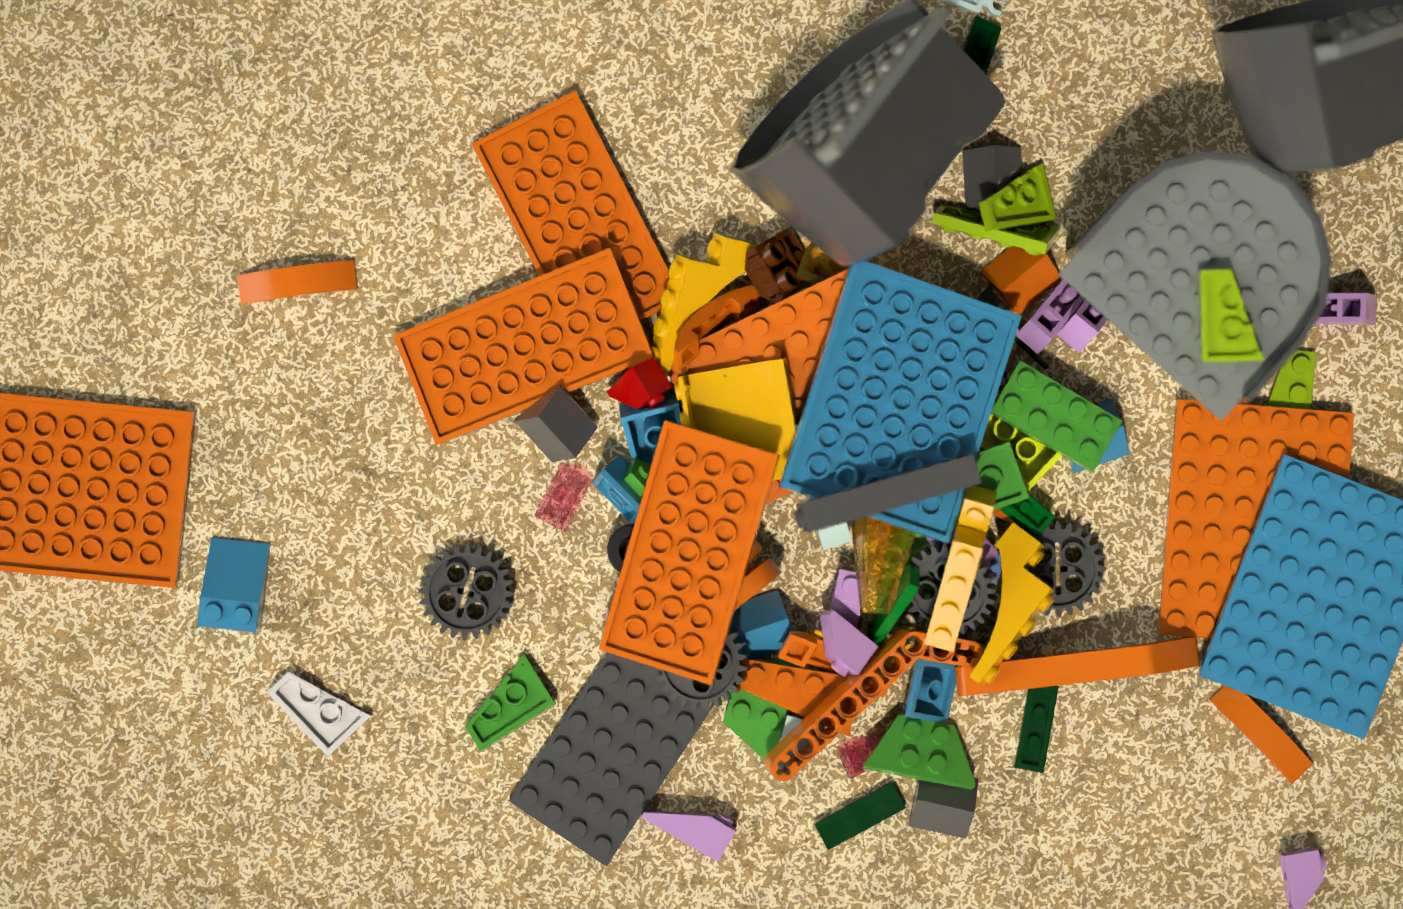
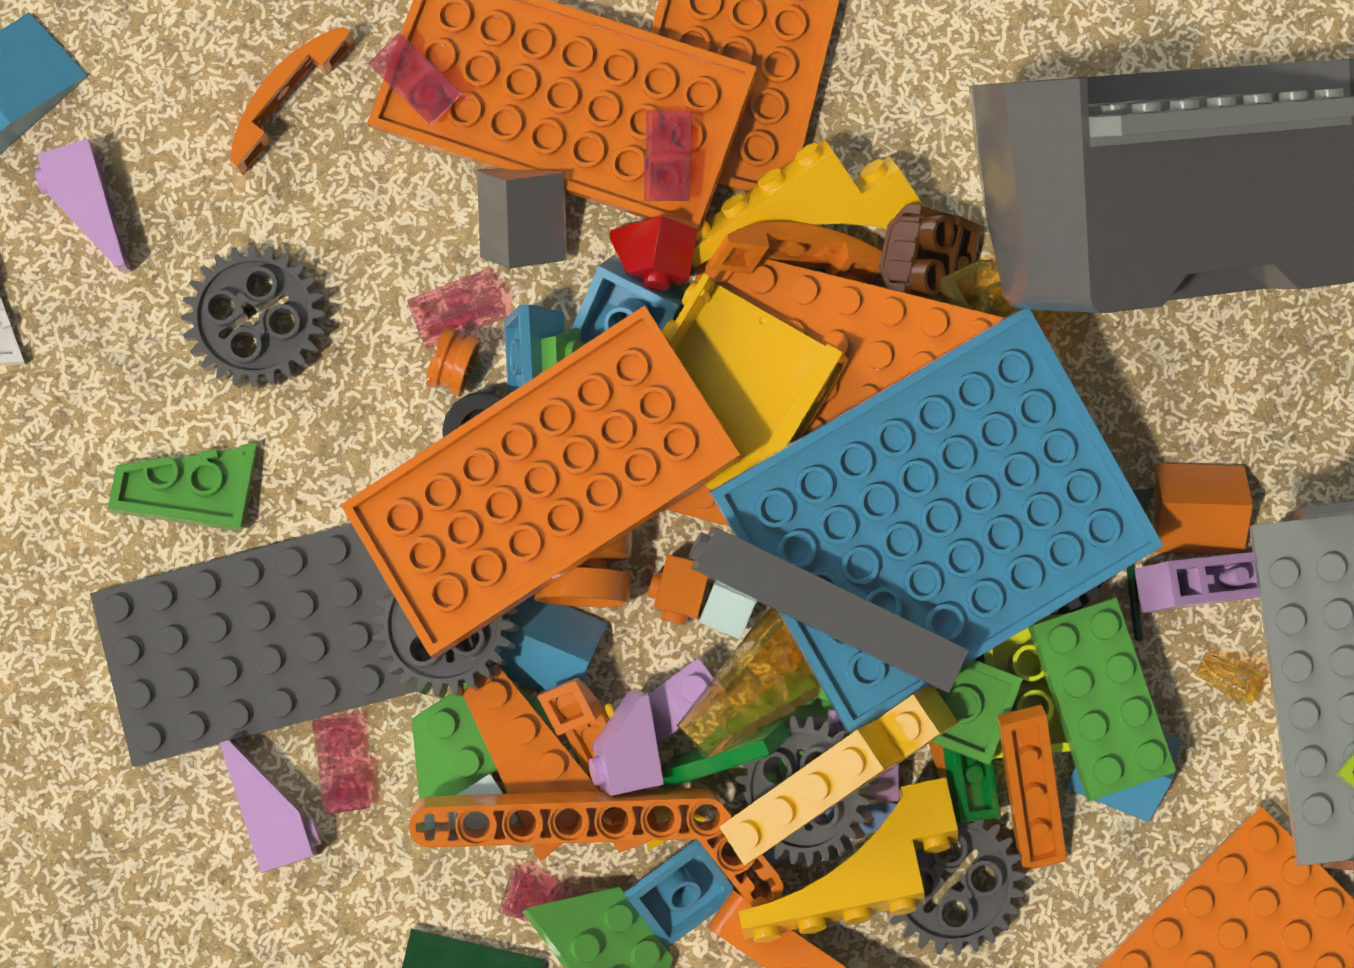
camera: 45 degrees right, 5 degrees down
(320, 605) = (78, 186): none -> lavender slope
(380, 428) = (322, 52): none -> orange slope
(441, 402) = (414, 79): none -> clear pink slope
(587, 527) = (453, 361): none -> orange wheel
(606, 332) = (668, 156): none -> clear pink slope
(707, 774) = (341, 764): none -> clear pink slope
(799, 545) = (678, 591): none -> orange brick
(988, 170) = (1264, 369): dark grey slope -> none
(1019, 202) = (1270, 421): lime wing -> none
(1031, 239) = (1218, 427): lime wing -> none
(1059, 490) = (1032, 787): none -> orange plate
(1082, 326) = (1224, 624): lavender slope -> none
(1109, 347) = (1232, 677): none -> clear yellow cone

